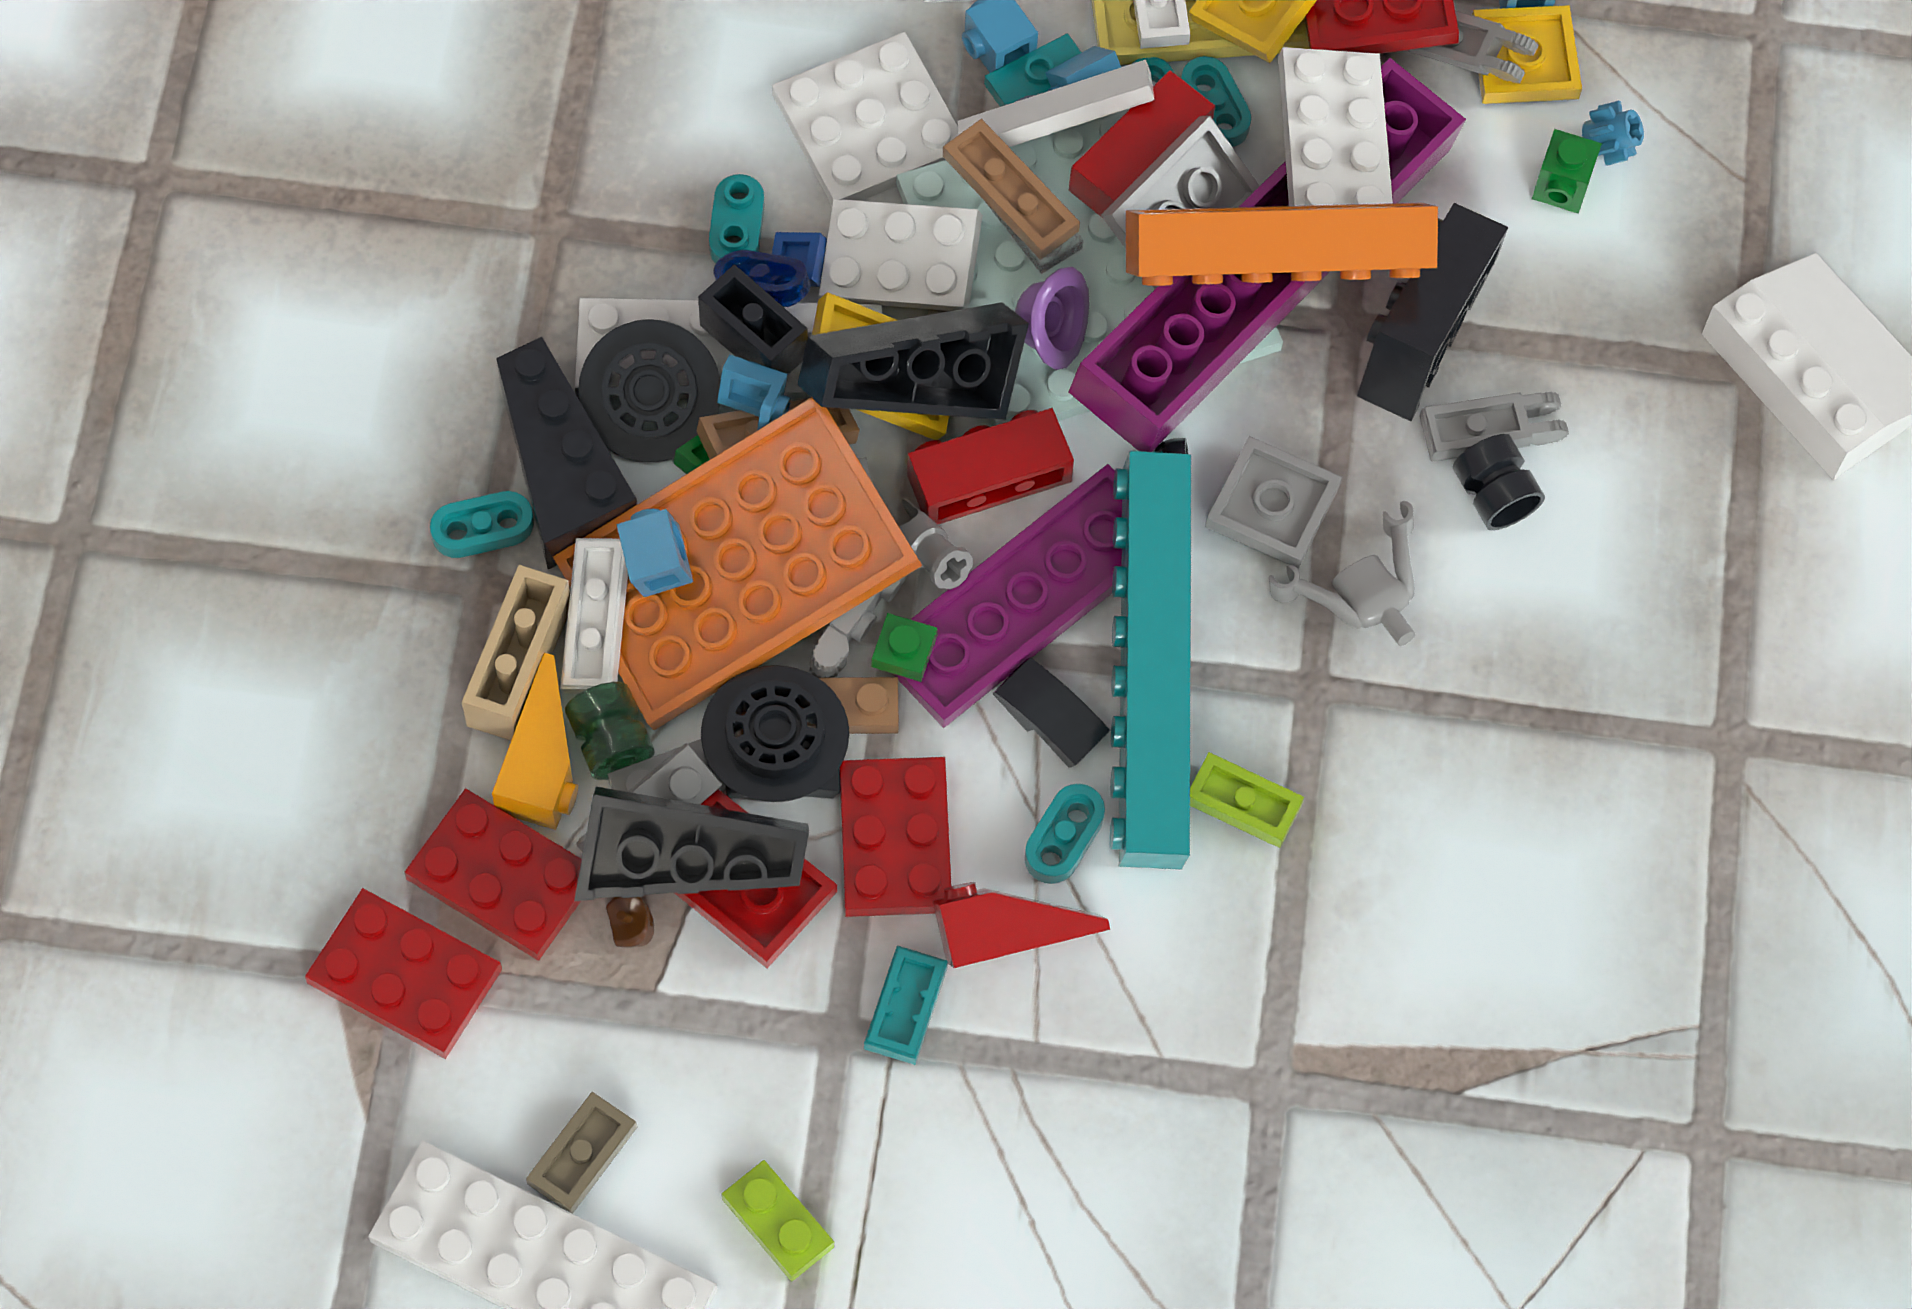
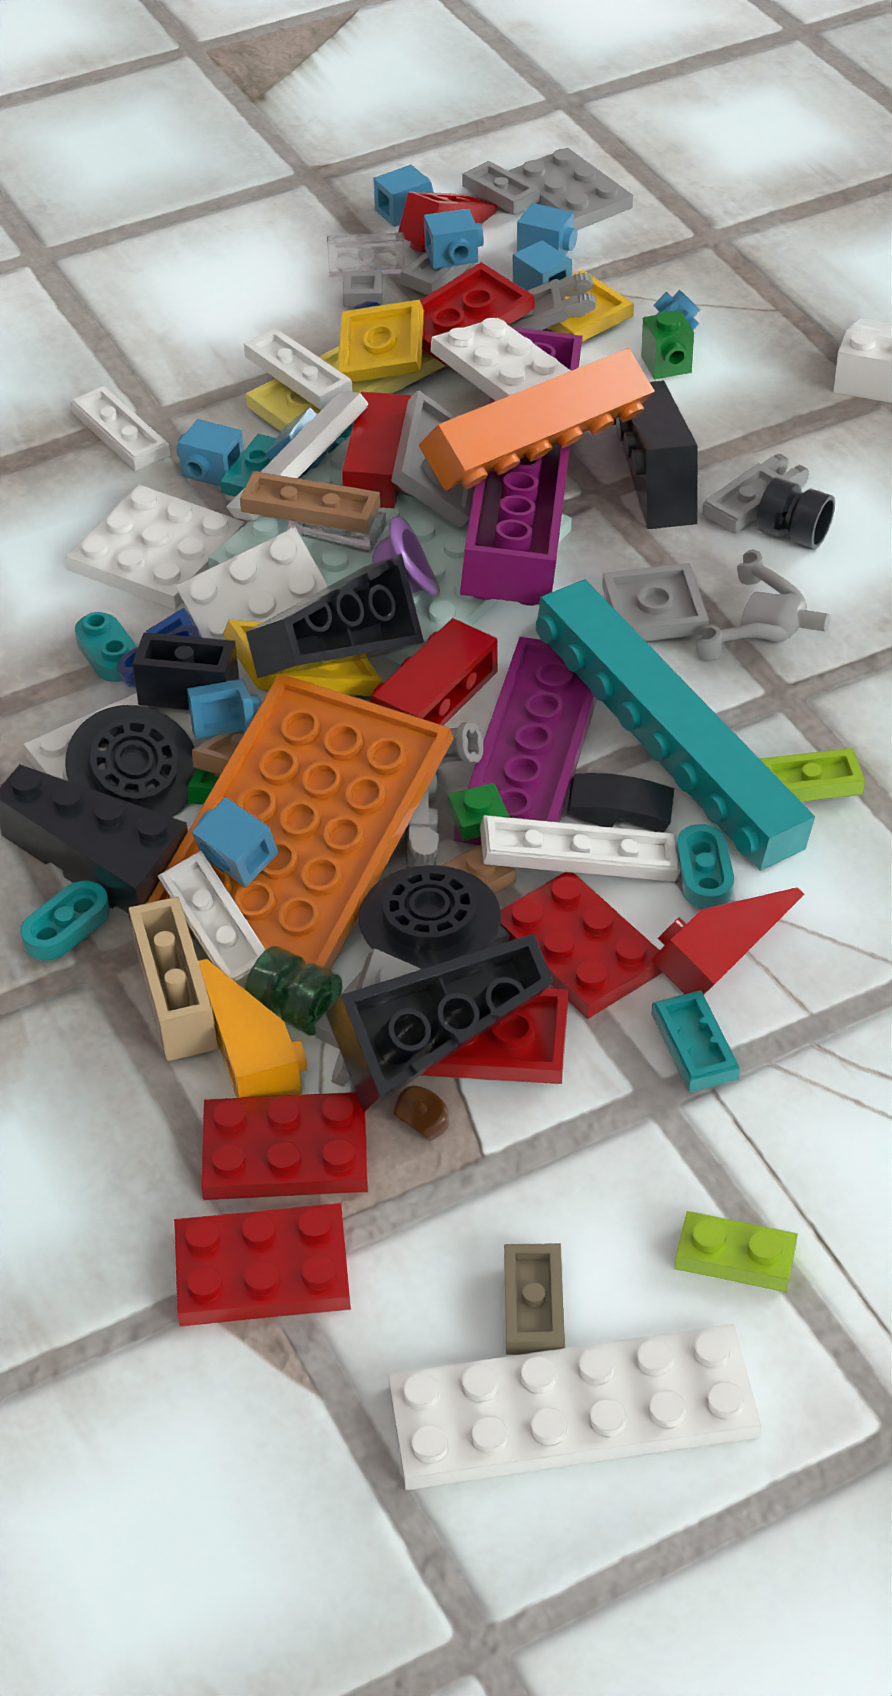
camera: 30 degrees left, 20 degrees down
(964, 744) = (579, 848): none -> white tile

